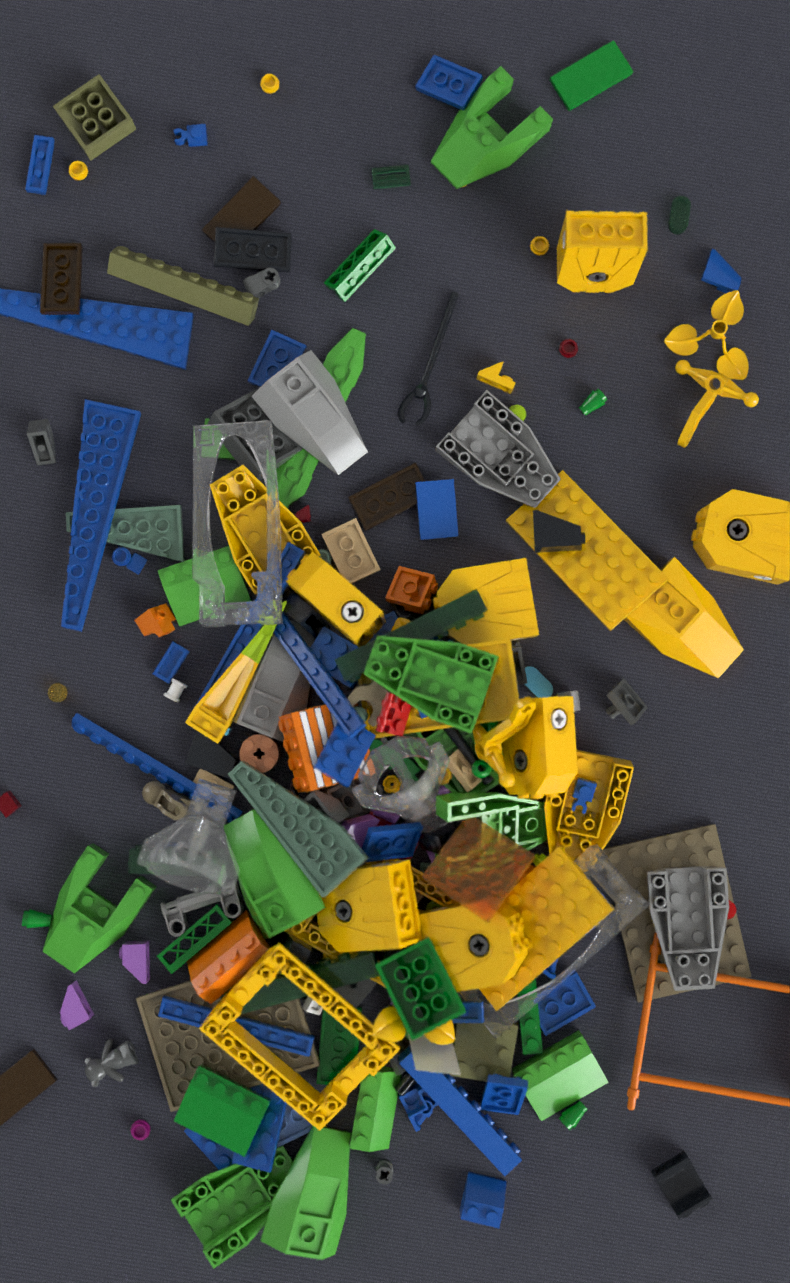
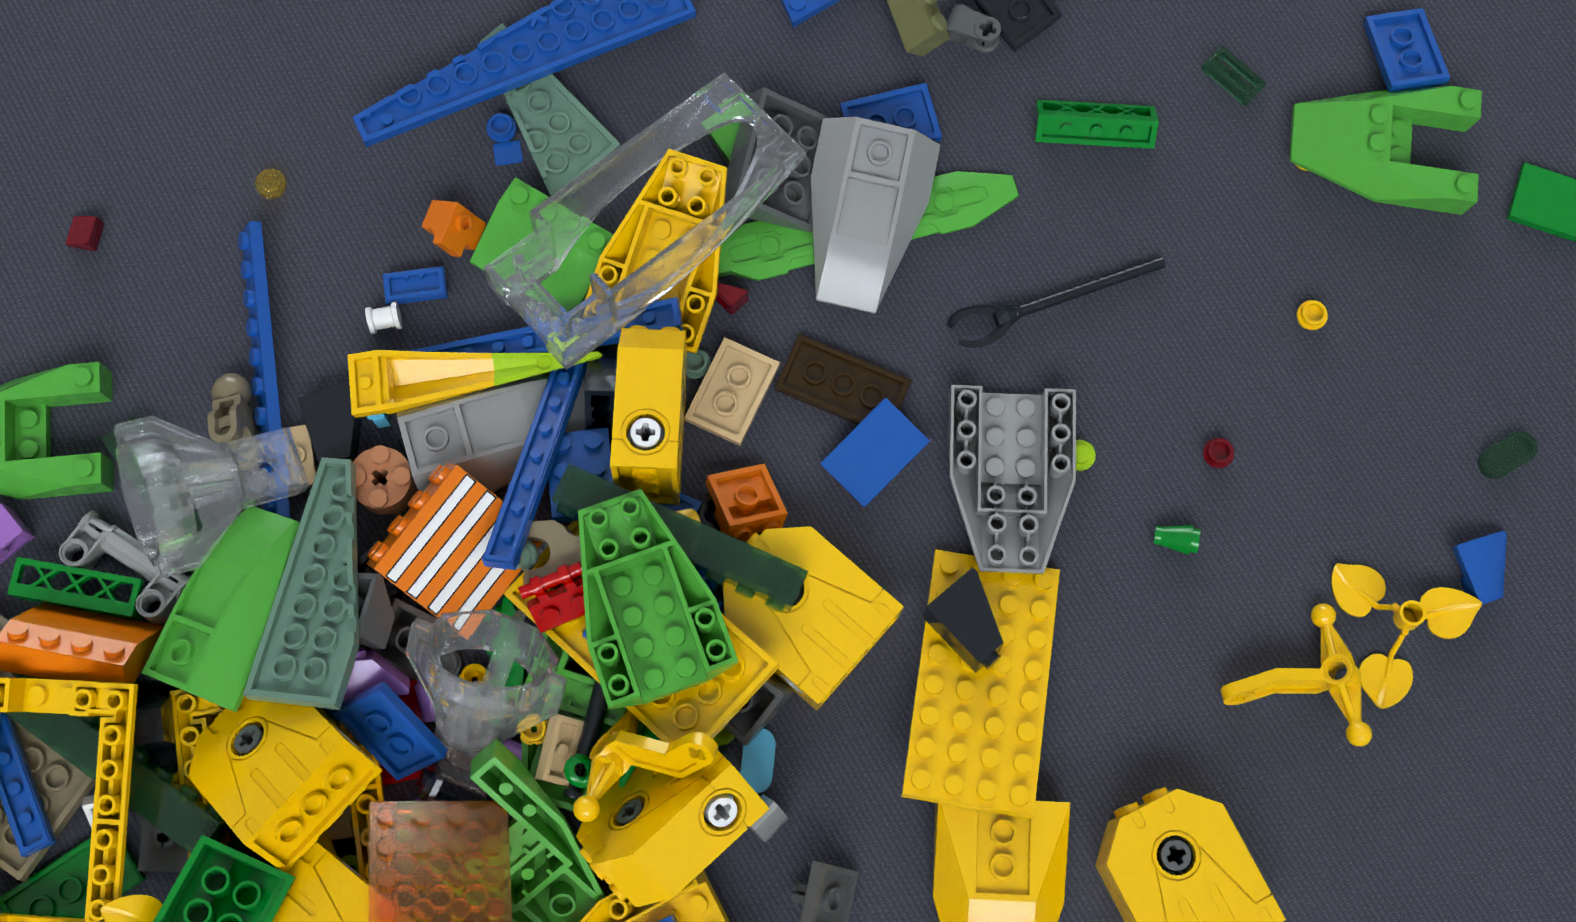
camera: 50 degrees right, 10 degrees down
(343, 754) = (455, 576): blue plate -> none
(491, 377) = (1099, 386): yellow slope -> none
(601, 250) = (1368, 379): yellow piece -> none

